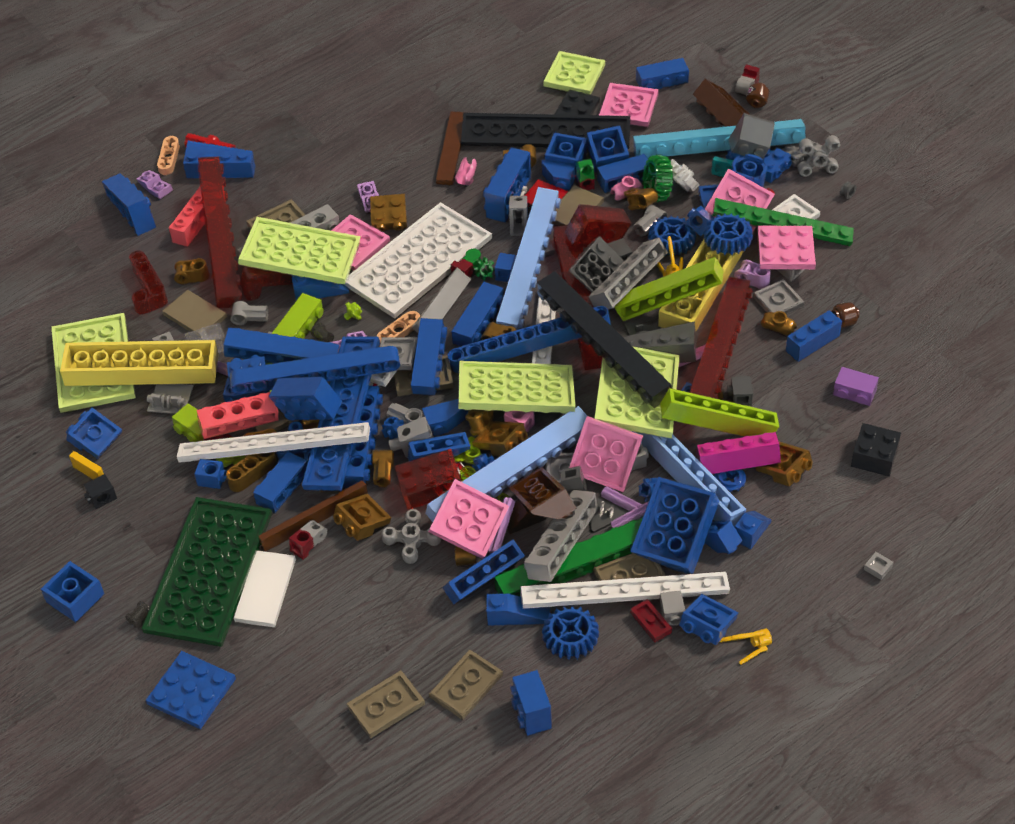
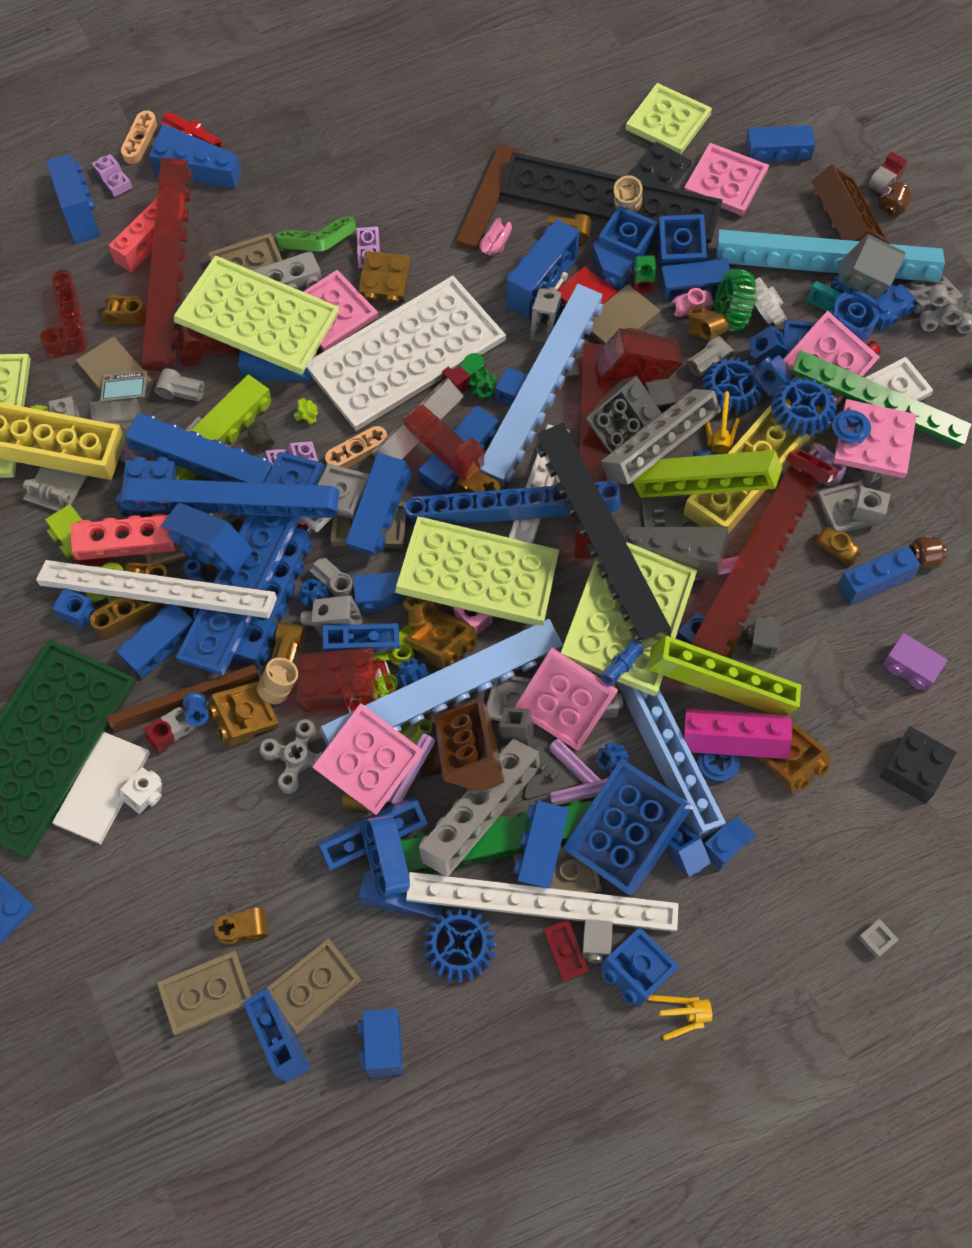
camera: 10 degrees right, 15 degrees up
(206, 319) = (123, 385): none -> sticker
(298, 580) = (141, 789): none -> white brick
(325, 517) = (196, 711): none -> blue bush
(332, 196) = (317, 240): none -> bright green beam
(383, 487) = (277, 680): none -> tan wheel
(402, 654) = (246, 926): none -> pearl gold piece
(449, 717) = (276, 1036): none -> blue slope
(479, 313) = (459, 455): none -> clear red beam
(500, 576) = (385, 856): none -> blue beam
(559, 122) = (628, 193): none -> tan wheel
(613, 547) = (541, 844): none -> blue brick
(641, 416) = (622, 663): none -> blue pin
(688, 202) = (767, 344): none -> blue brick
(751, 274) = (806, 462): none -> dark red plate
(766, 235) = (851, 418): none -> blue gear
(794, 291) = (874, 498): none -> light grey brick

